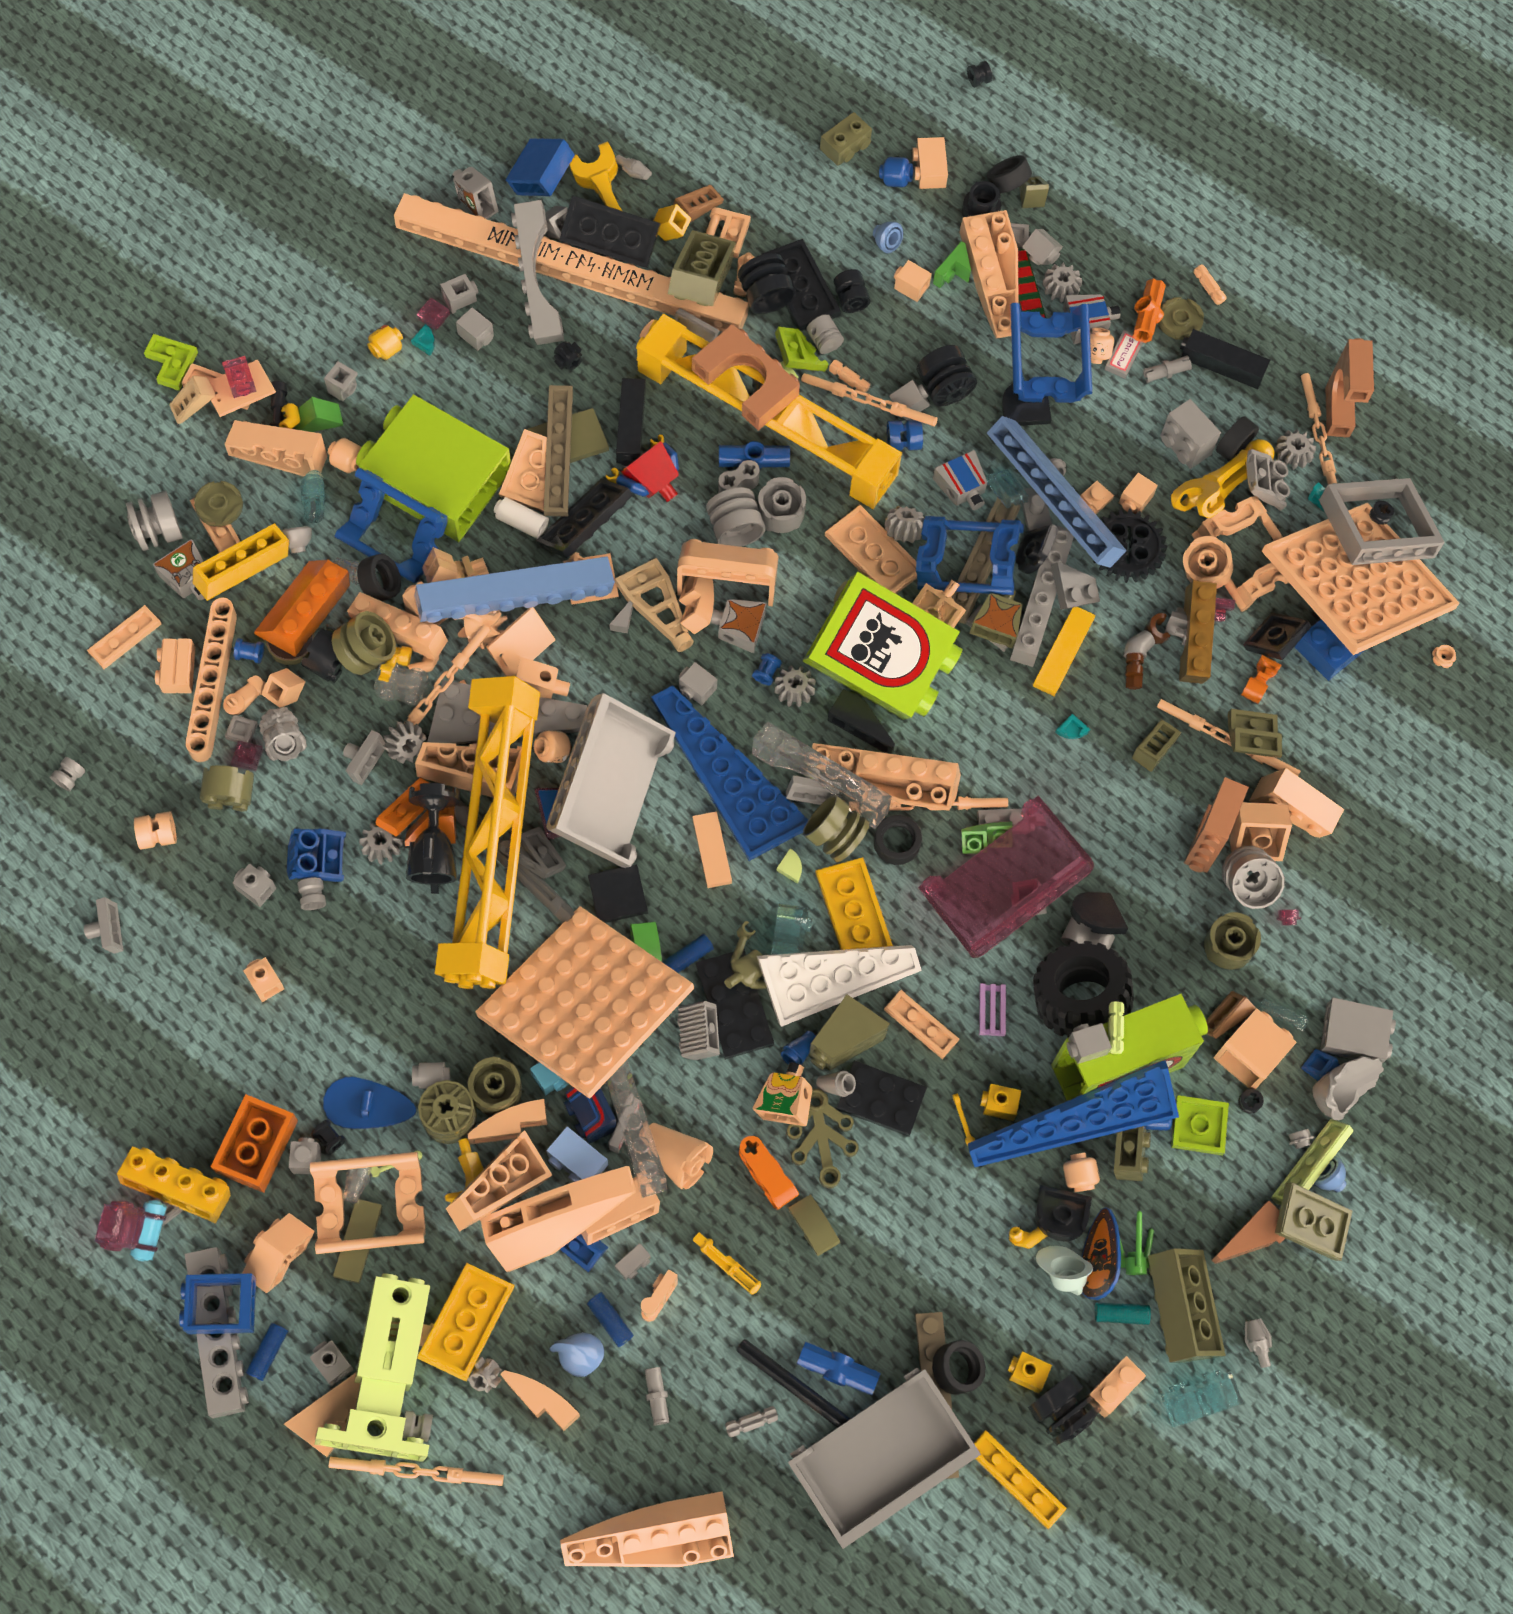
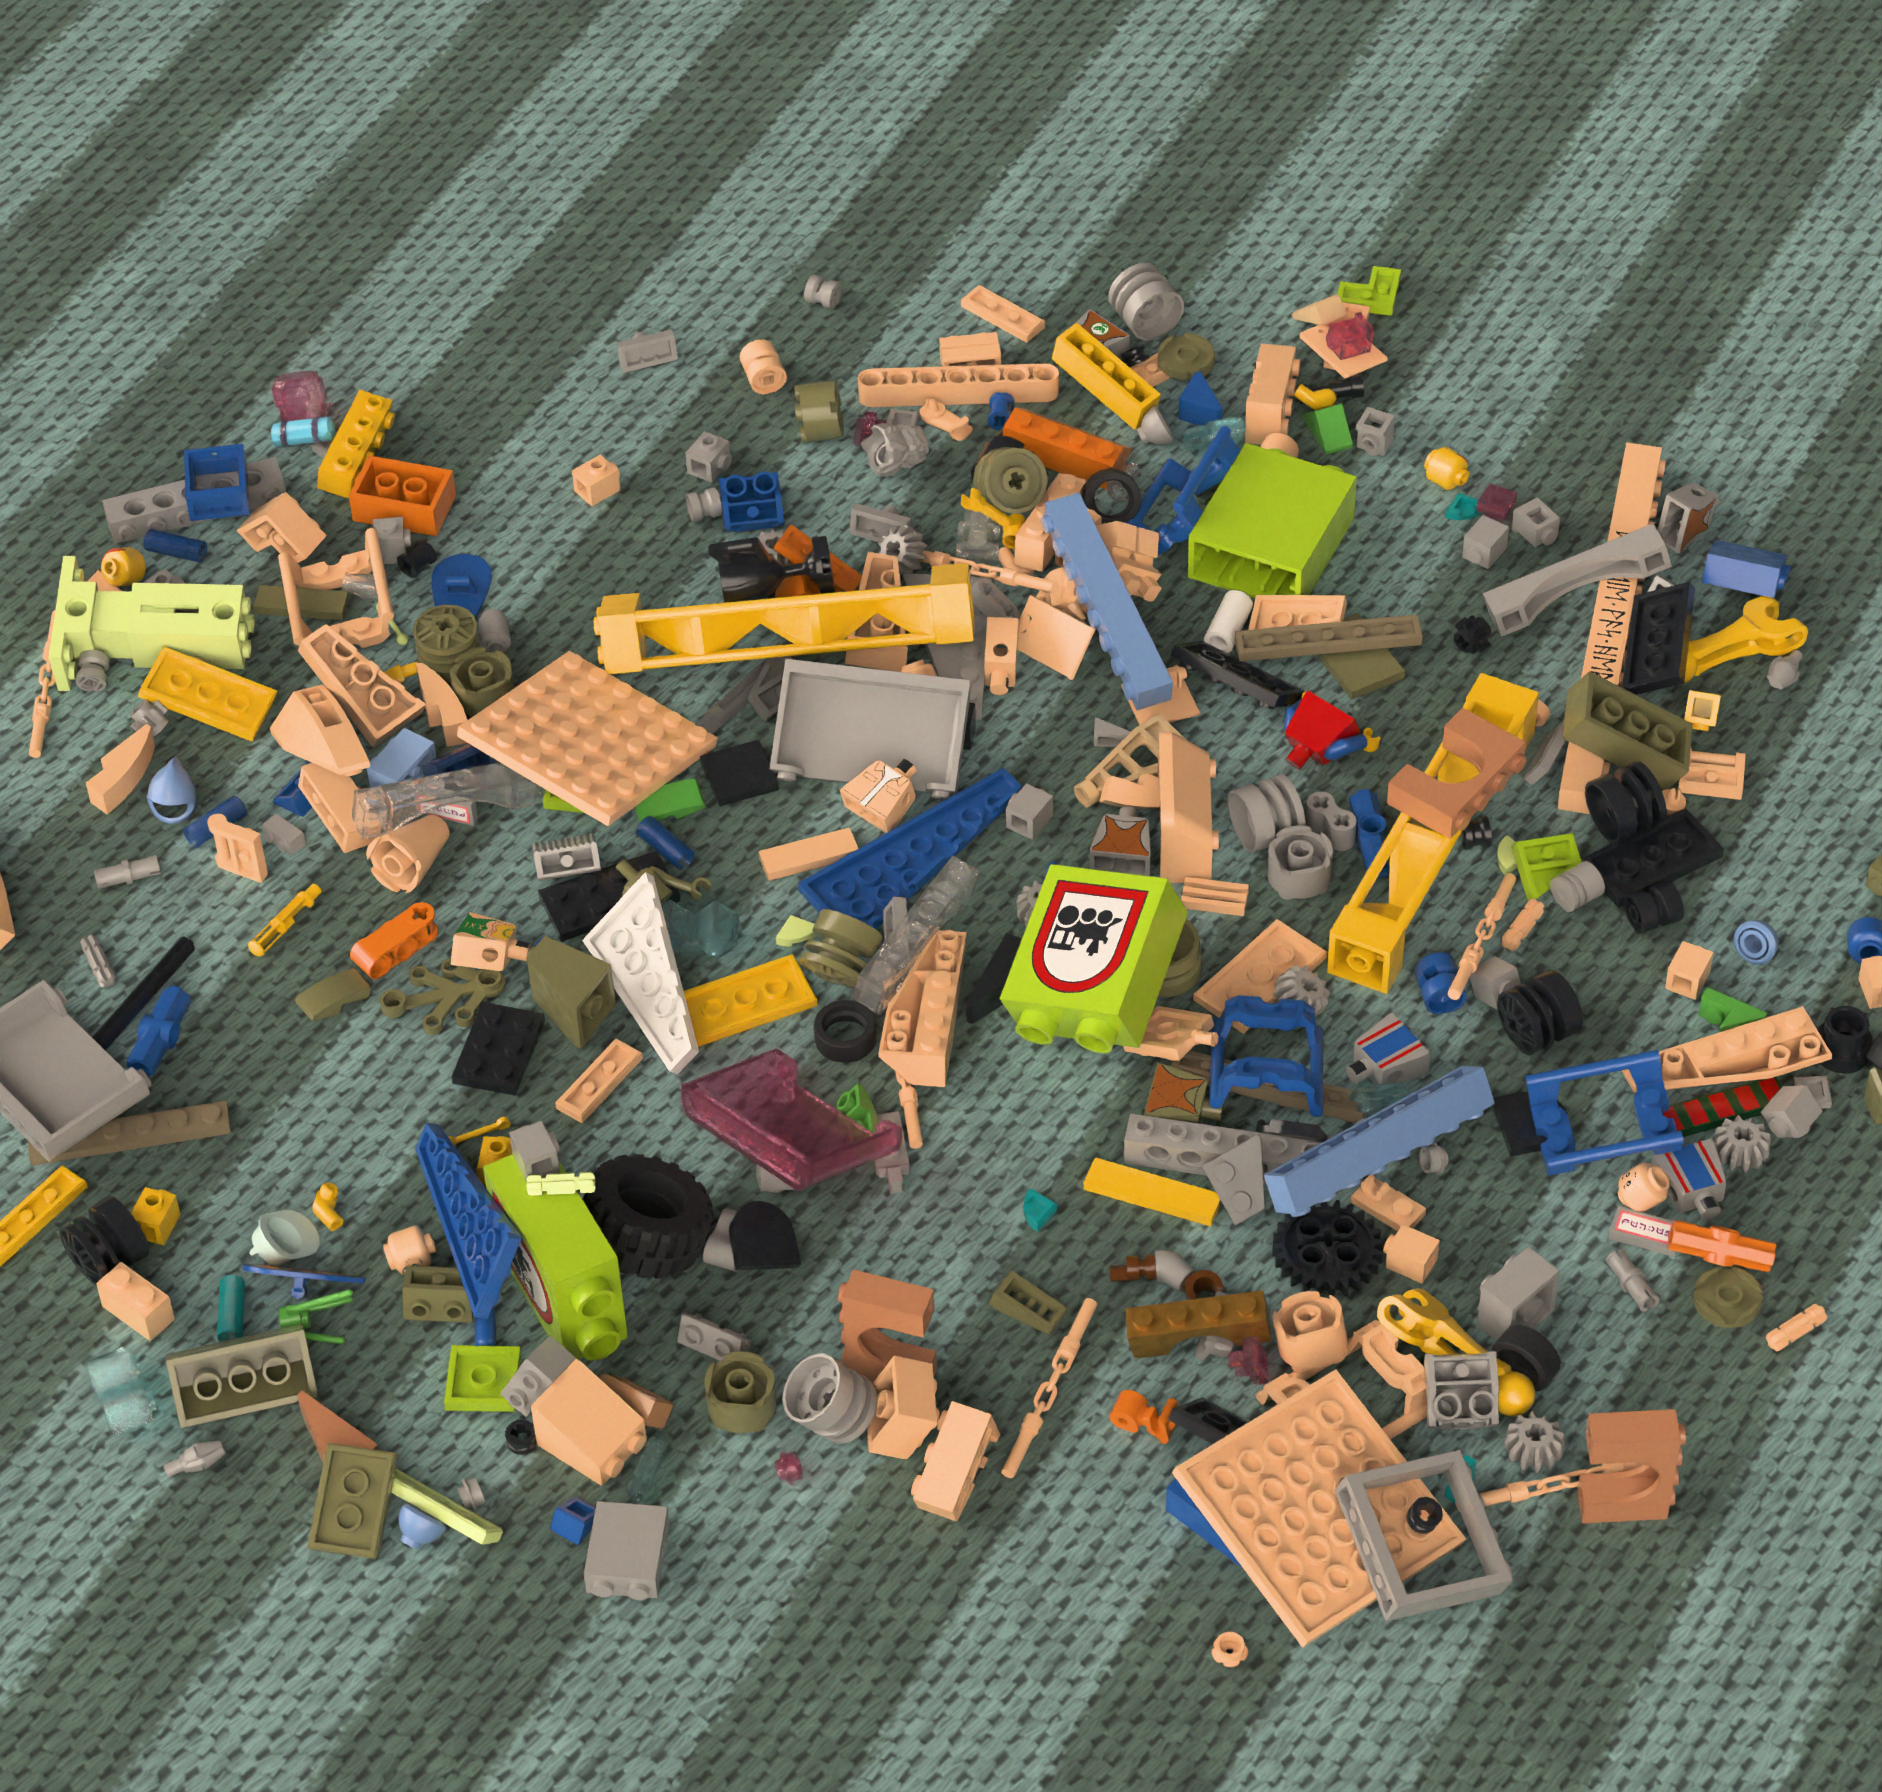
camera: 90 degrees right, 20 degrees down
(206, 541) = (1135, 355): none -> black bush
(274, 501) = (1198, 402): none -> blue slope
(283, 687) = (955, 441): light nougat brick -> none
(293, 1397) = (123, 566): none -> yellow head
(476, 673) = (992, 600): none -> light grey beam
(630, 420) = (1396, 705): black brick -> none
(667, 786) = (881, 794): none -> light nougat torso
(699, 209) = (1733, 738): medium nougat slope -> none
(800, 553) = (1215, 892): none -> light nougat tile
(837, 1083) = (501, 996): light grey cone -> none
(975, 1364) = (153, 1164): black tyre -> none
(1002, 1027) = (623, 1145): lavender tile -> none
(1062, 1213) = (356, 1237): black tile -> none
(1169, 968) = (709, 1338): none -> light grey hinge
(1223, 1078) = (537, 1374): none -> light grey brick
(1225, 358) = (1666, 1347): black brick -> none
(1254, 733) = (1057, 1409): olive slope -> none
(1345, 1084) = (541, 1532): light grey hair -> none

